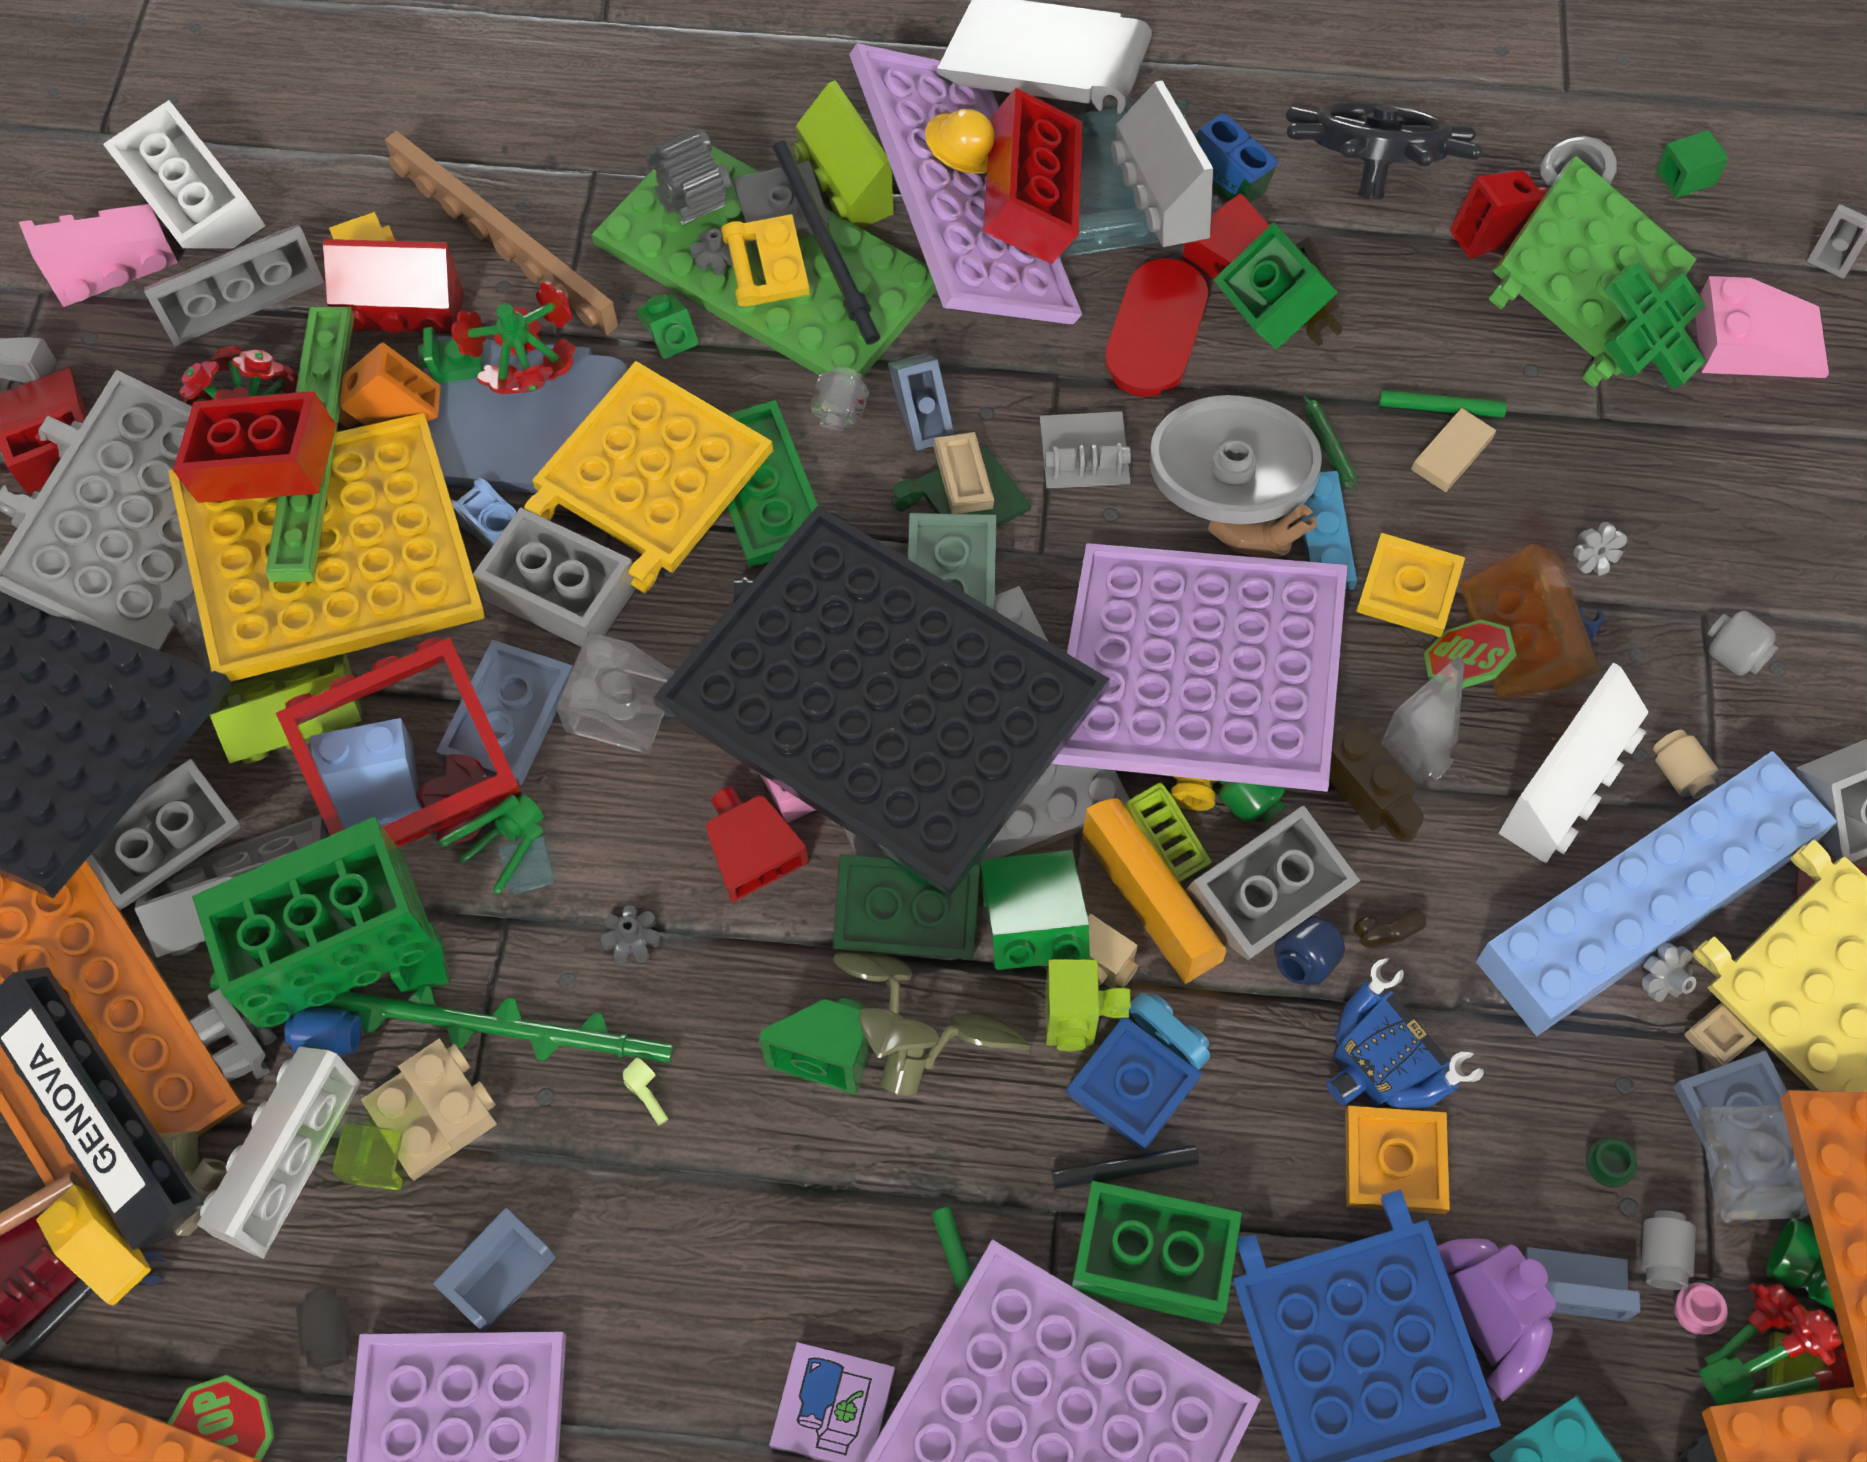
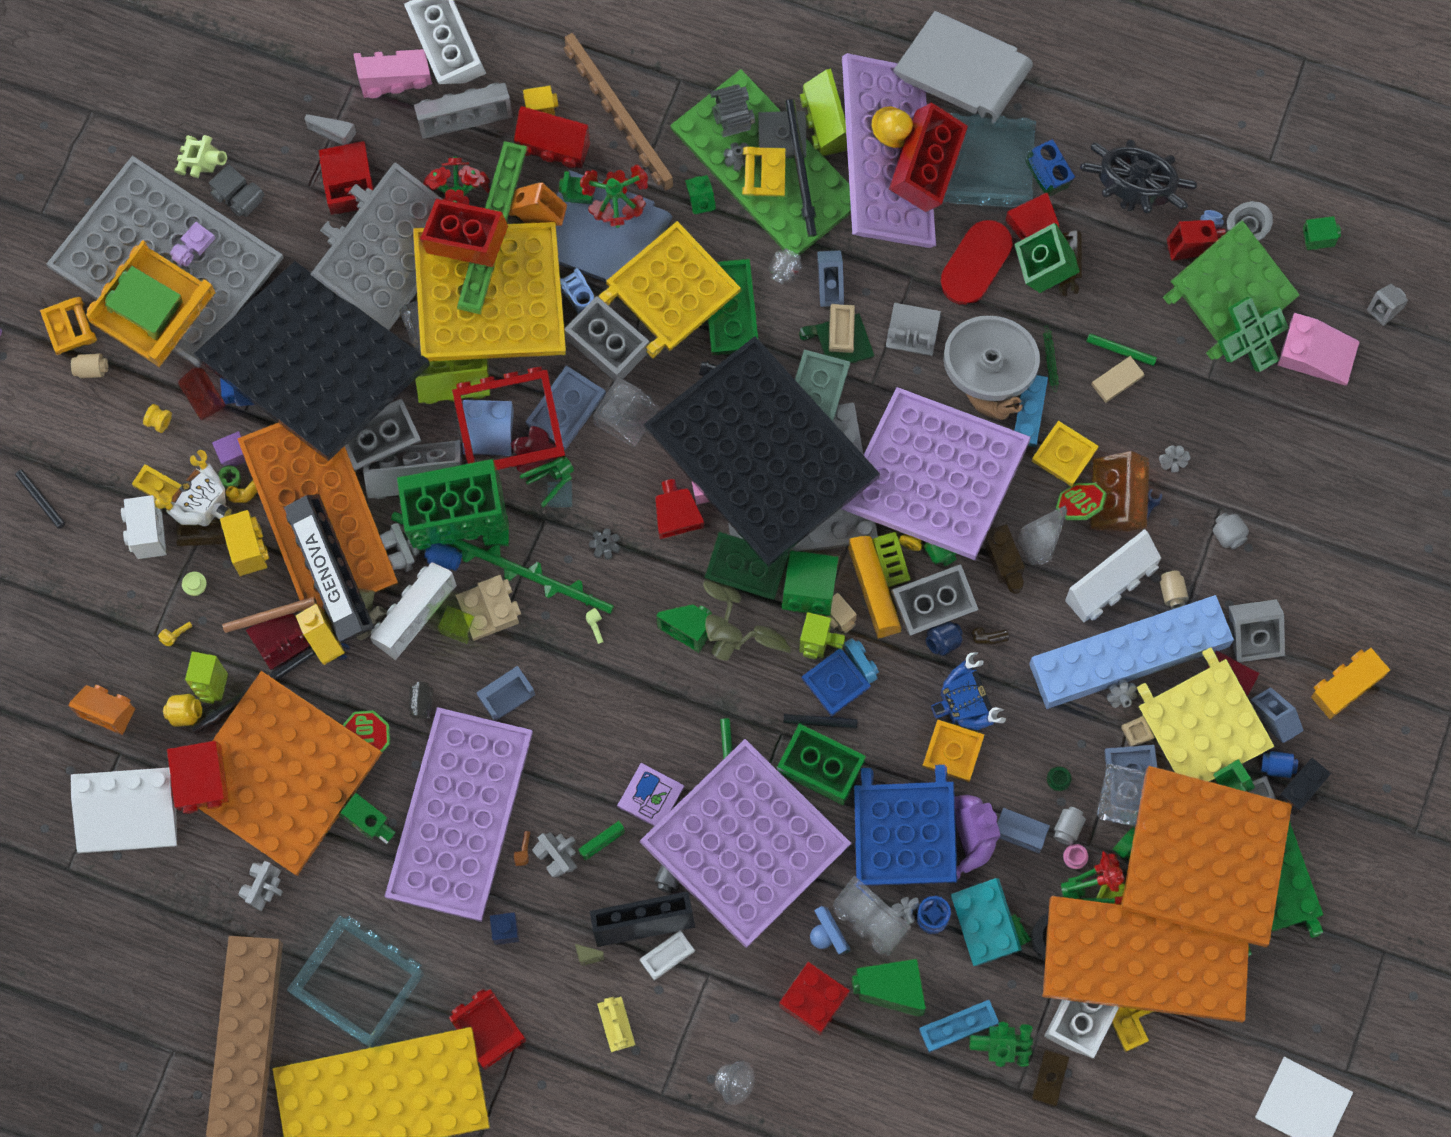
camera: 15 degrees right, 10 degrees up
(1165, 168) = (1002, 171): light grey slope -> none

